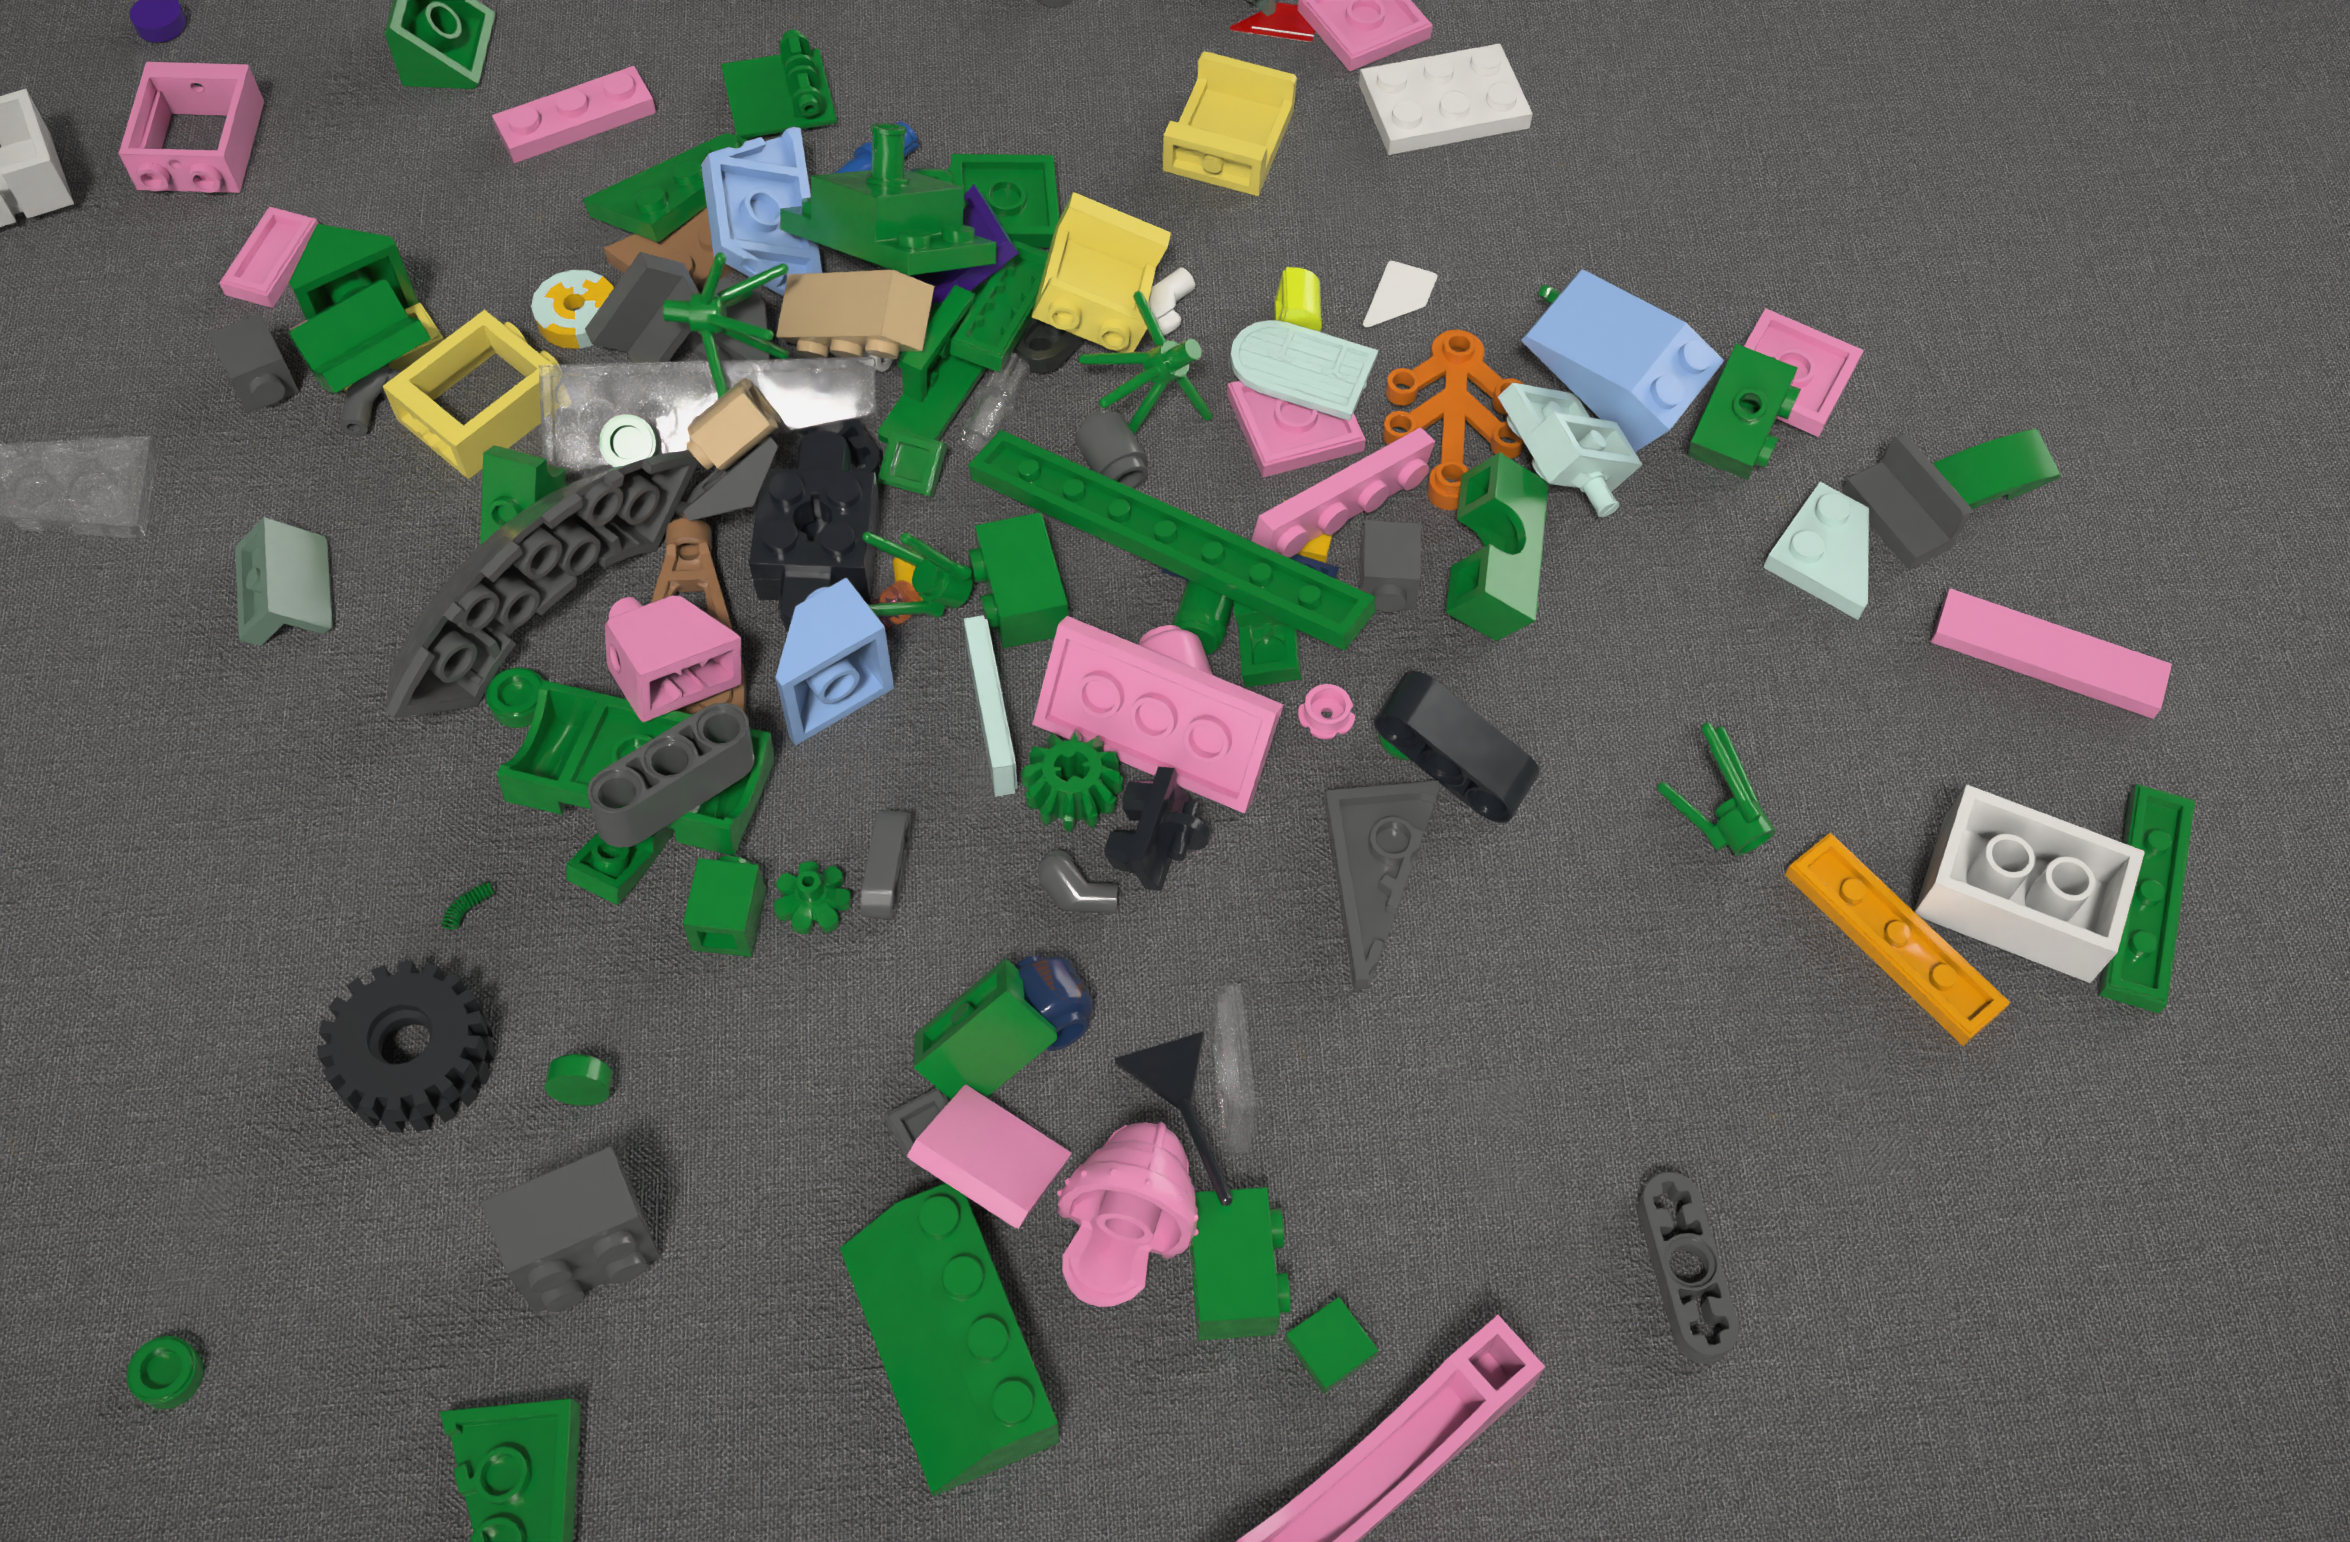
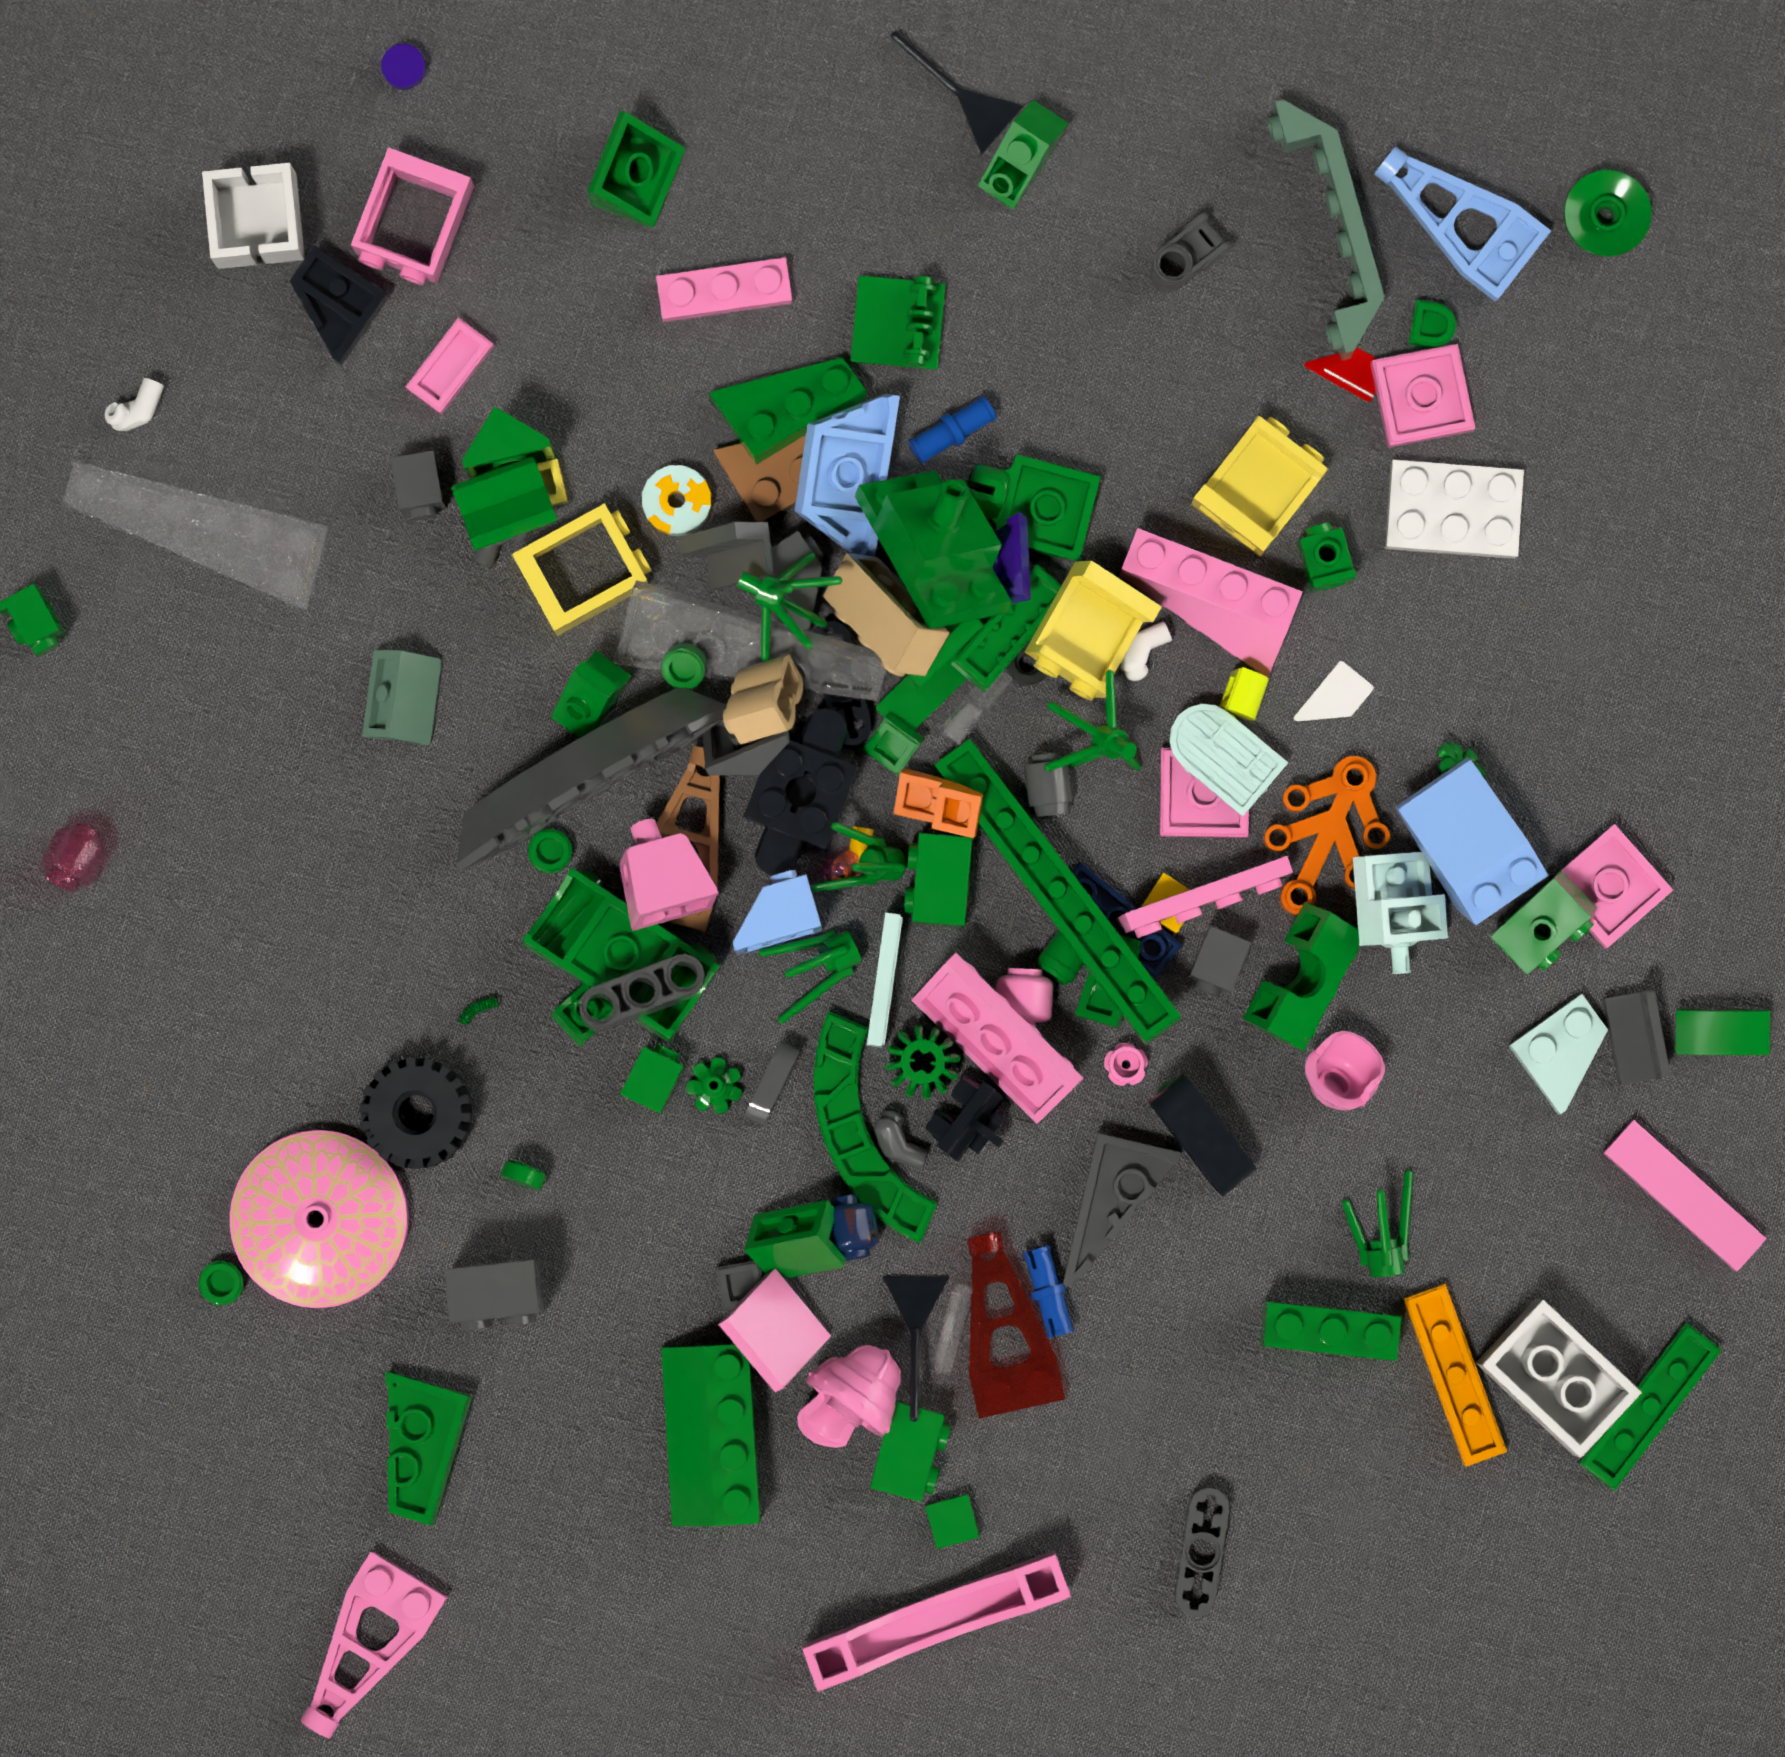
camera: 20 degrees right, 25 degrees up
(118, 225) = (336, 301): none -> black wing
(304, 1290) = (361, 1225): none -> bright pink dish
(916, 697) = (837, 954): none -> green plant
(987, 495) = (938, 801): none -> orange slope
(1011, 907) = (847, 1135): none -> green tile
(1228, 220) = (1214, 597): none -> bright pink wedge
(1327, 158) = (1323, 574): none -> green brick
(1341, 1000) = (1048, 1291): none -> blue pin
(1344, 1135) = (1014, 1385): none -> clear red plate
(1594, 629) = (1344, 1071): none -> bright pink helmet
(1720, 924) = (1330, 1330): none -> green brick

